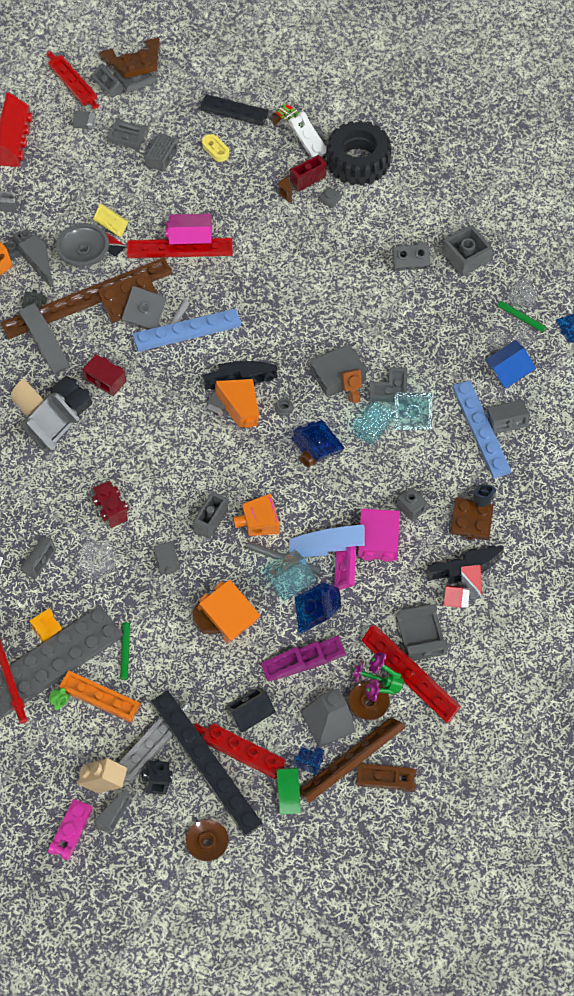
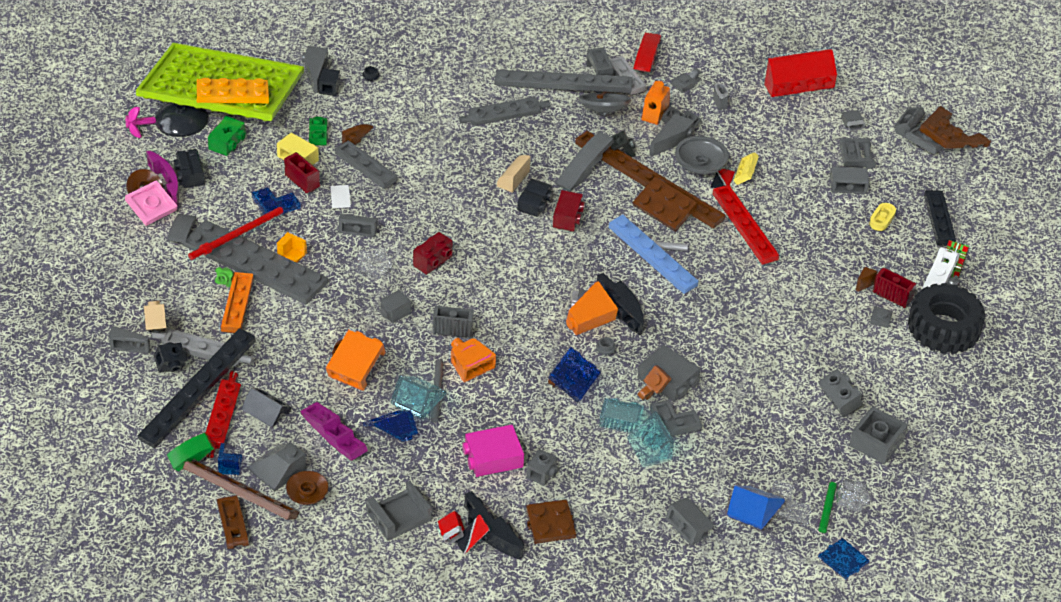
camera: 65 degrees right, 15 degrees down
(49, 421) = (495, 187): panel -> none
(70, 829) = (103, 320): dark pink plate -> none
(72, 80) = (893, 98): red plate -> none
(125, 651) = (290, 308): green bar -> none
(144, 308) = (656, 215): dark grey plate -> none
(189, 228) = (767, 220): dark pink brick -> none
(203, 831) = (122, 409): reddish brown dish -> none
(328, 540) = (464, 410): light blue slope -> none
(345, 568) = (452, 433): dark pink plate -> none
(393, 683) = (333, 498): plant -> none
(412, 674) = (346, 518): red plate -> none
(481, 429) = (657, 509): medium blue plate -> none
(483, 495) = (579, 518): black plate -> none

